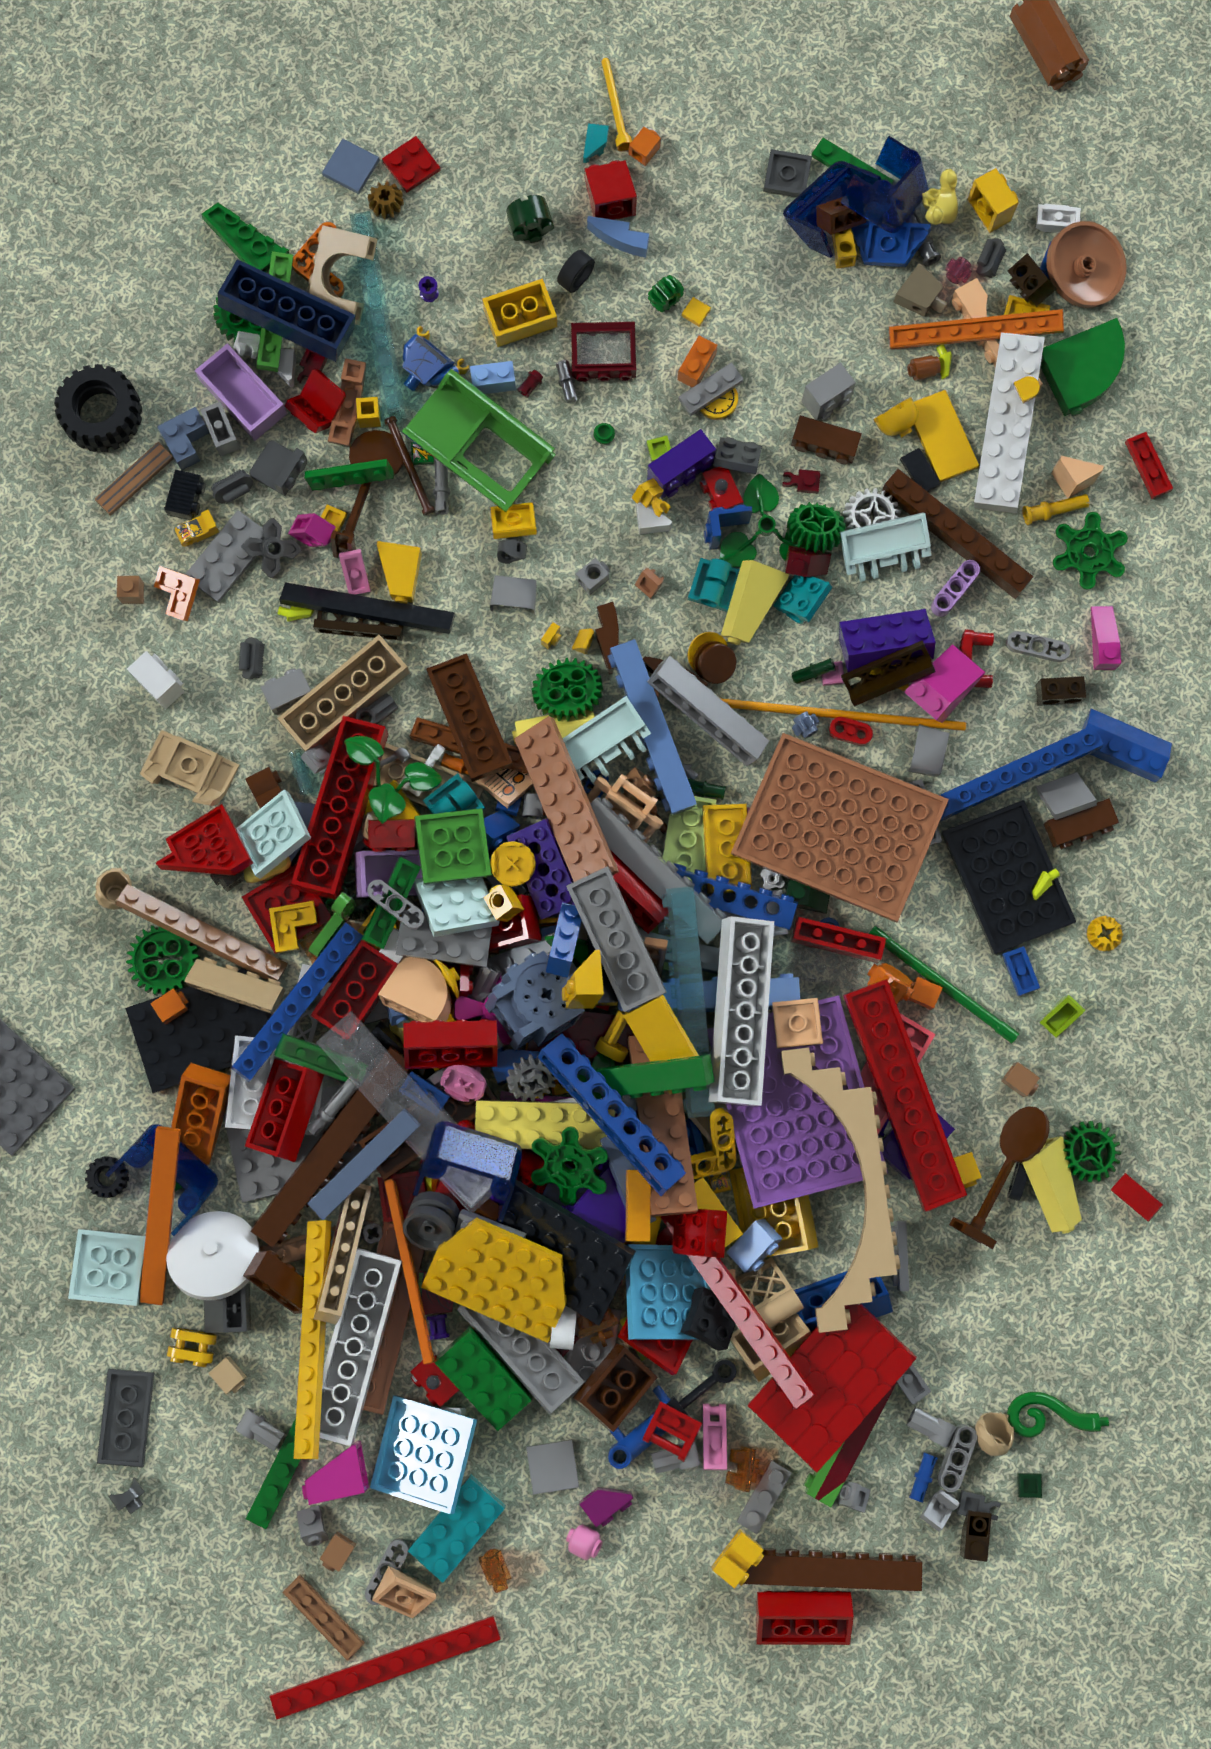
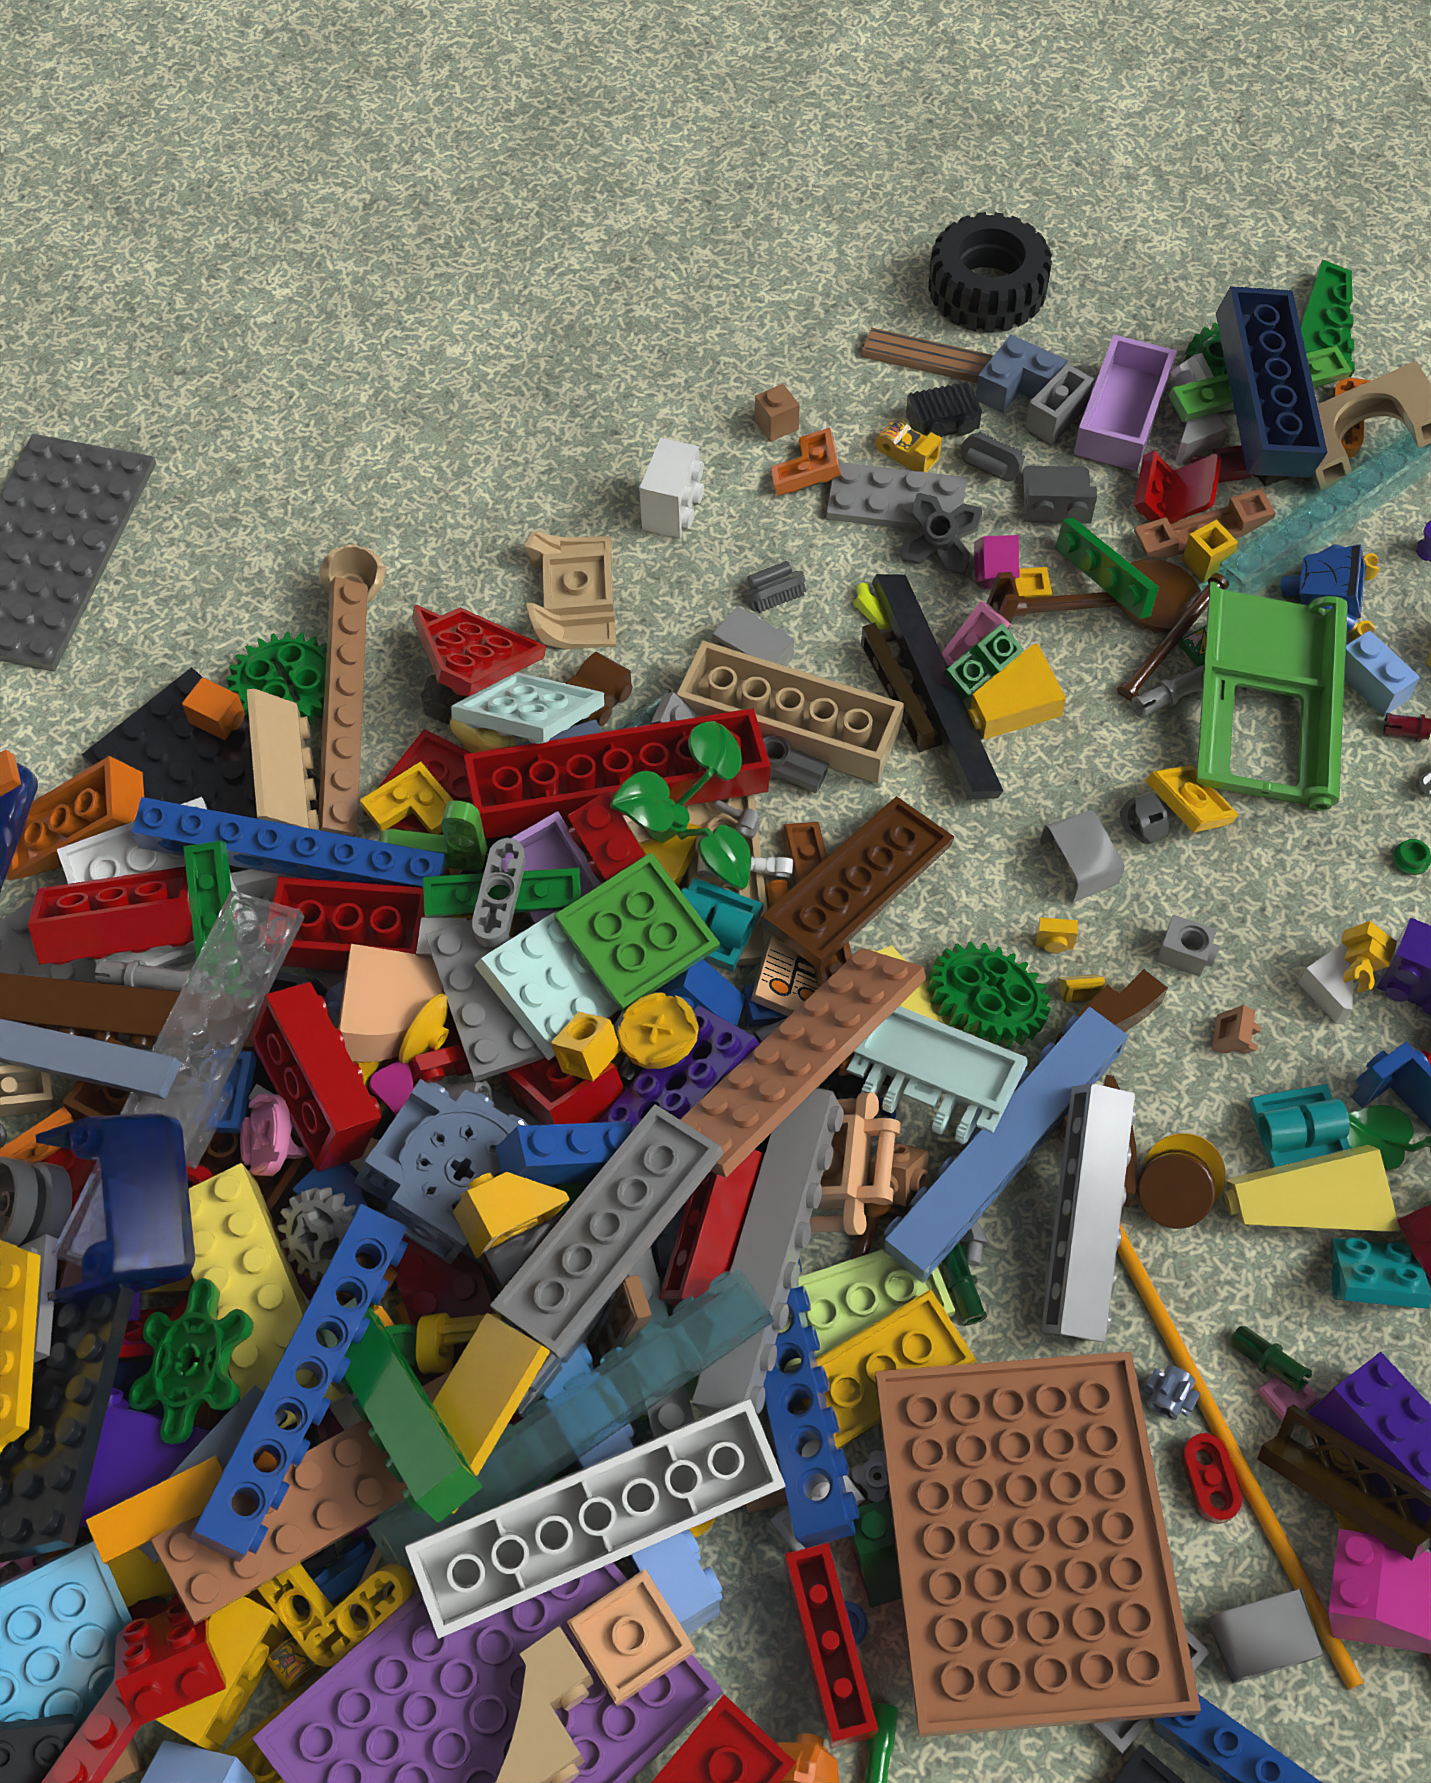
camera: 65 degrees right, 20 degrees down
(372, 577) = (983, 661): none -> green slope

